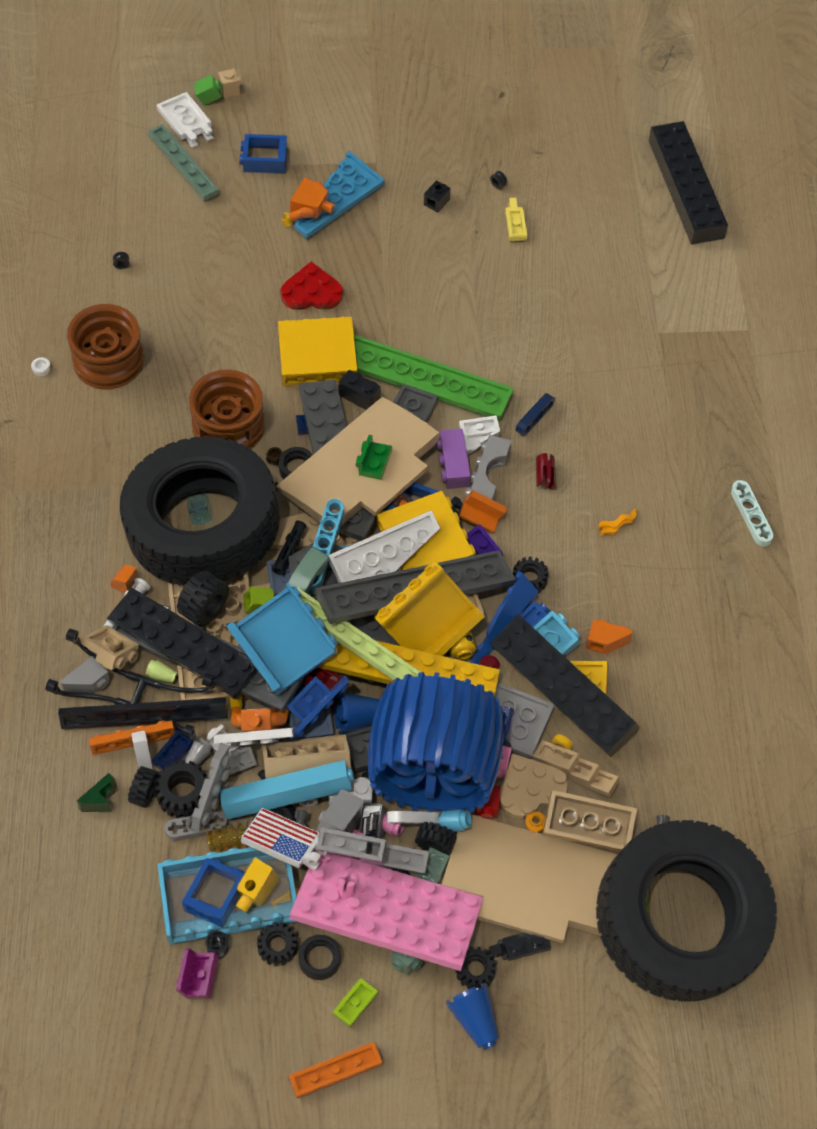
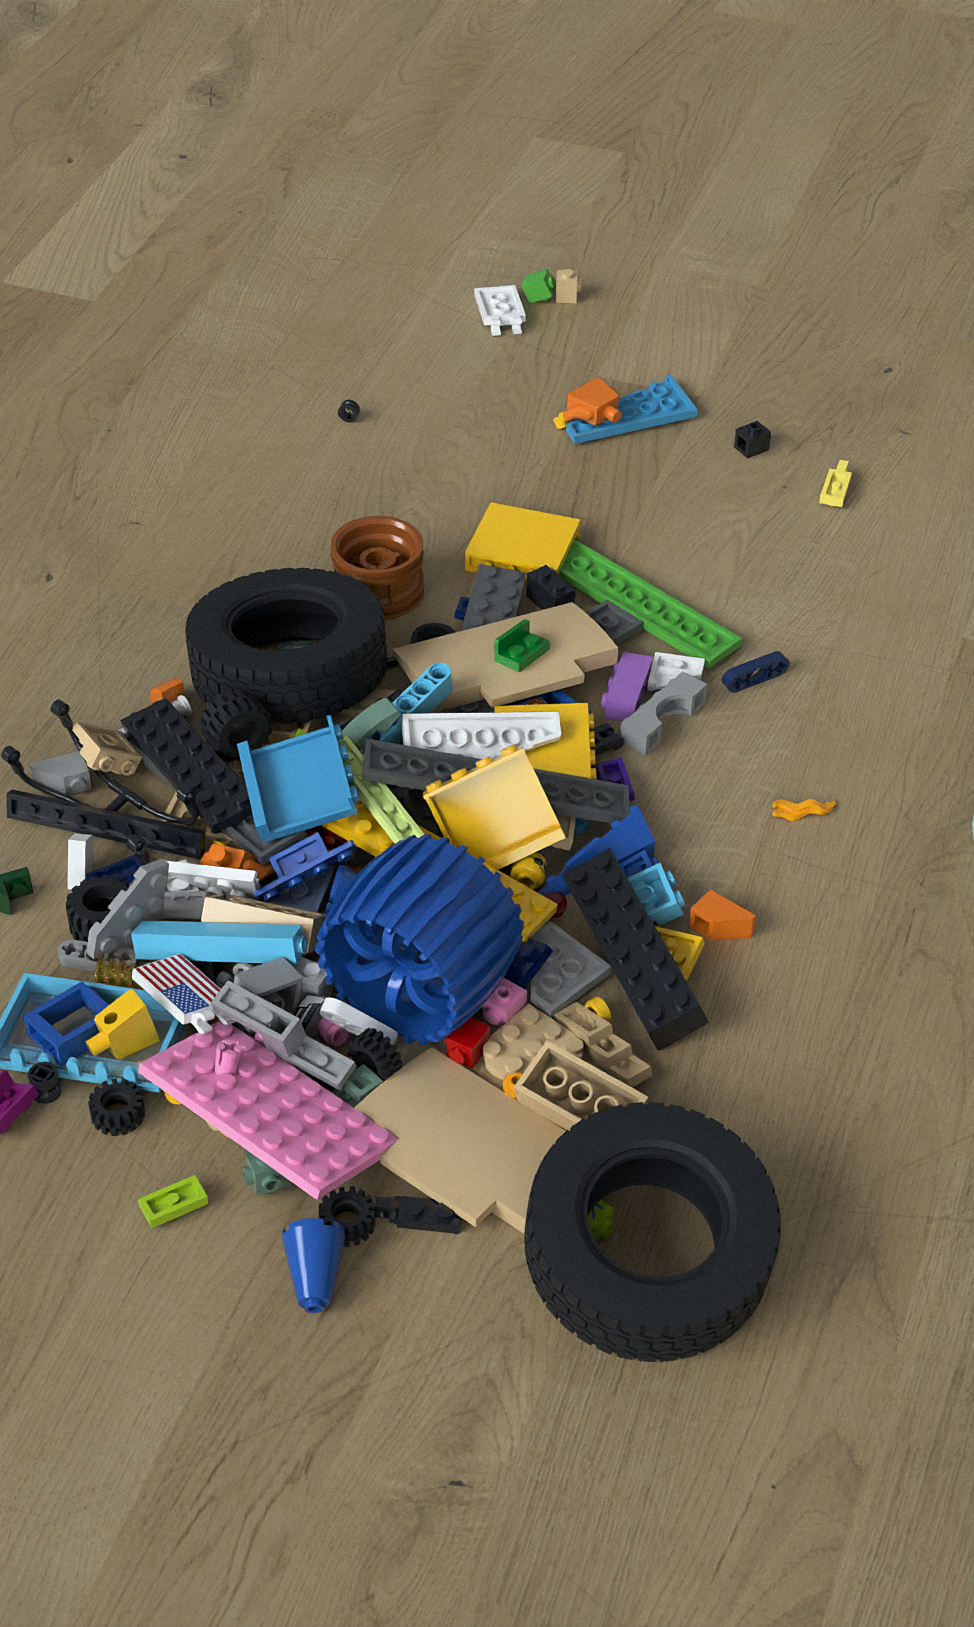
camera: 25 degrees right, 15 degrees down
(41, 366) = (201, 483): white tile -> none
(113, 346) = (278, 474): dark orange wheel -> none
(123, 739) = (55, 844): orange plate -> none
(143, 787) = (52, 892): black tyre -> none
(160, 671) = (152, 793): yellowish green cone -> none
(183, 162) = (473, 344): sand green plate -> none
(264, 165) = (567, 366): blue window -> none
(273, 452) = (409, 626): dark brown plate -> none
(311, 288) = (551, 488): red plate -> none
(319, 940) = (154, 1120): black tyre -> none
(335, 1070) = (104, 1265): orange plate -> none
(455, 820) = (412, 1044): medium azure brick -> none
(482, 511) = (632, 744): orange panel -> none
(498, 179) = (837, 441): black bush -> none
(536, 567) = (667, 820): black tyre -> none
(545, 471) = (737, 727): dark red arm -> none

